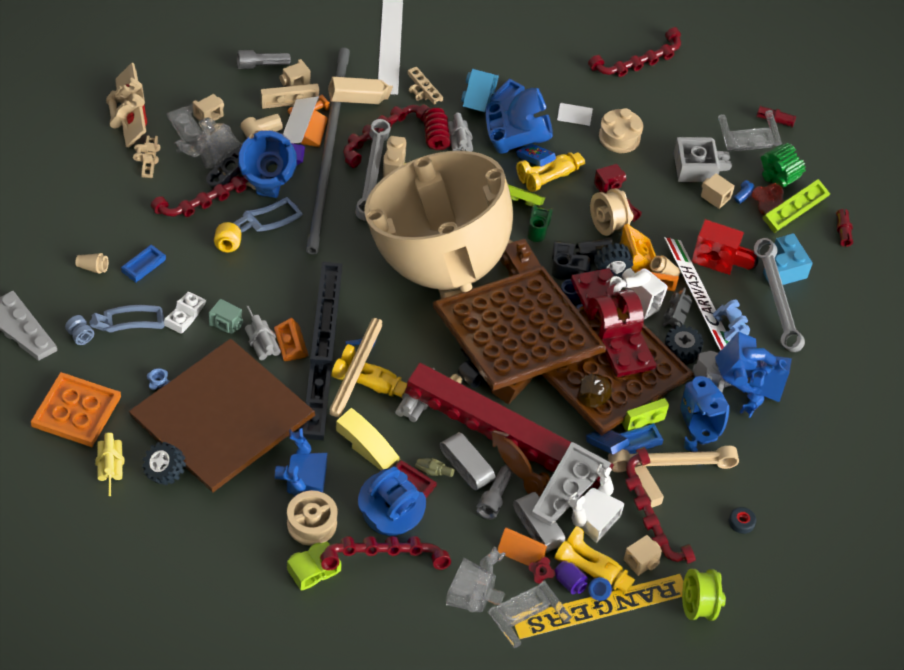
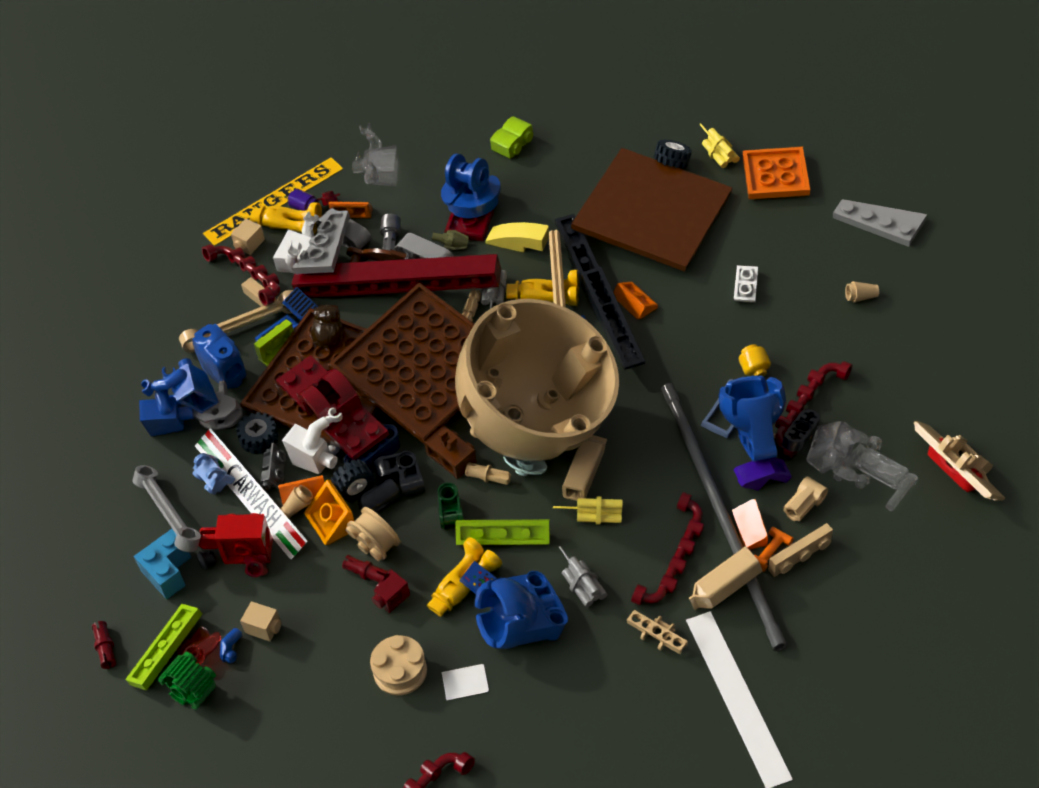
camera: 170 degrees right, 0 degrees up
(79, 329) = (822, 229): sand blue wheel -> none
(108, 324) = (807, 250): sand blue sword -> none
(143, 263) = (817, 315): blue tile -> none
(147, 157) = (903, 427): tan piece -> none
(157, 374) = (727, 221): medium blue plate -> none
(208, 107) = (876, 494): tan brick -> none
(226, 317) = (703, 289): sand green window -> none
(249, 59) = (877, 580): flat silver piece -> none
(261, 337) = (660, 286): light grey piece -> none
(295, 75) = (811, 580): tan brick -> none
(299, 119) = (768, 515): white sticker -> none
(305, 469) = (554, 190): blue torso -> none
(312, 517) = (530, 162): tan wheel -> none
(330, 560) = (489, 148): dark red bar -> none
(373, 163) = (655, 493): light grey piece -> none
(394, 154) = (639, 515): tan brick -> none
(436, 129) = (611, 570): dark red piece -> none
(479, 89) = (586, 643): dark azure brick -> none
(507, 90) = (557, 670): blue tile -> none
(524, 607) = (333, 169): clear plate -> none
(600, 589) = (276, 200): blue plate -> none
(698, 159) = (292, 652): light grey hinge -> none
(702, 594) = (188, 215): lime wheel -> none
(739, 526) = (167, 307): black wheel -> none
(751, 138) = (235, 724): clear plate -> none
(780, 117) = (193, 779): dark red pin -> none

